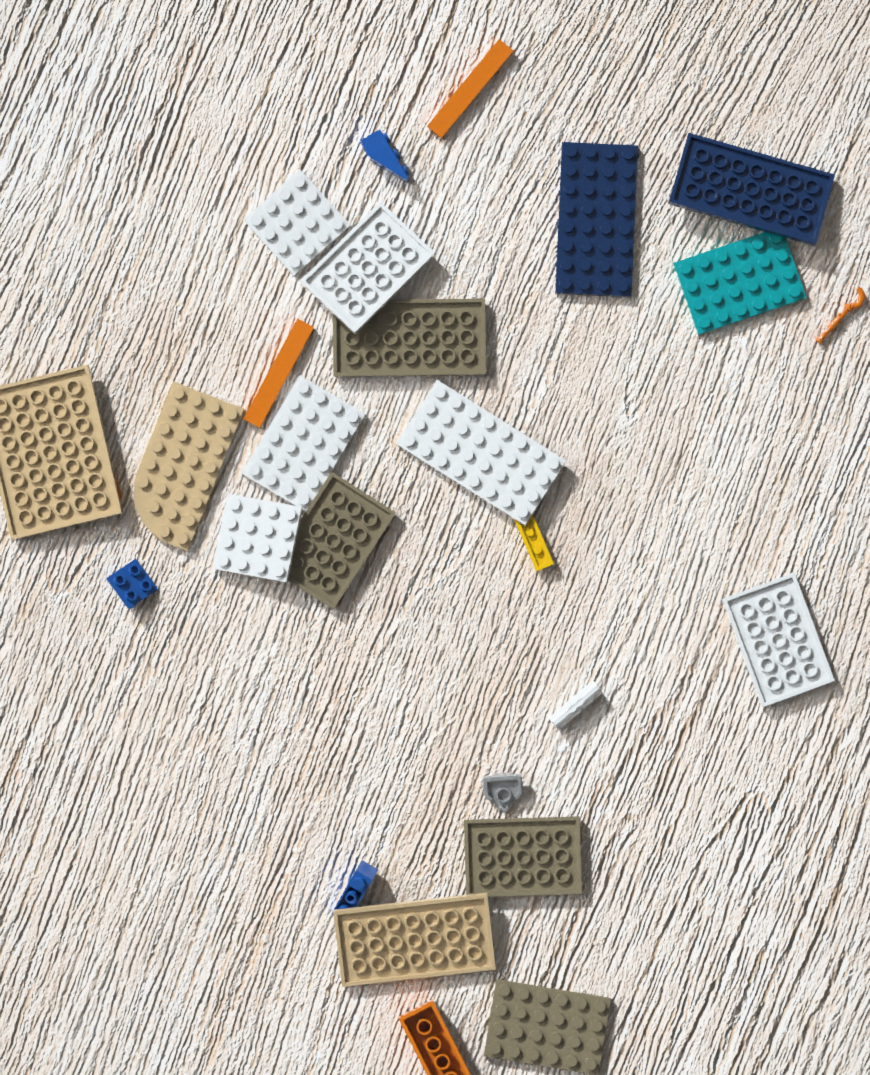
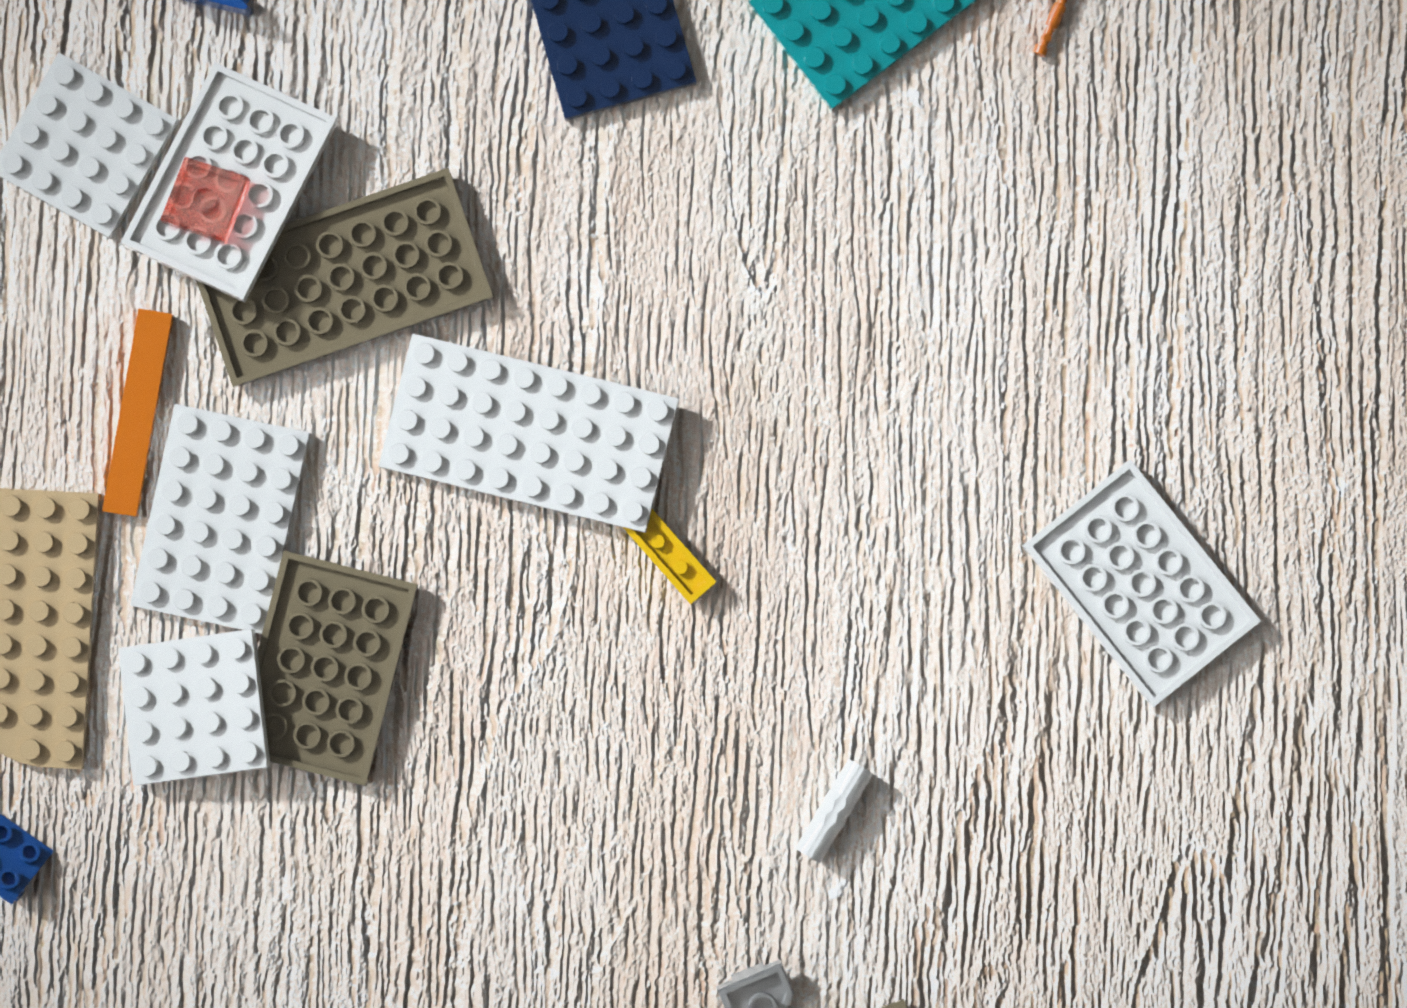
camera: 25 degrees left, 0 degrees up
(352, 273) = (205, 200): none -> clear red tile

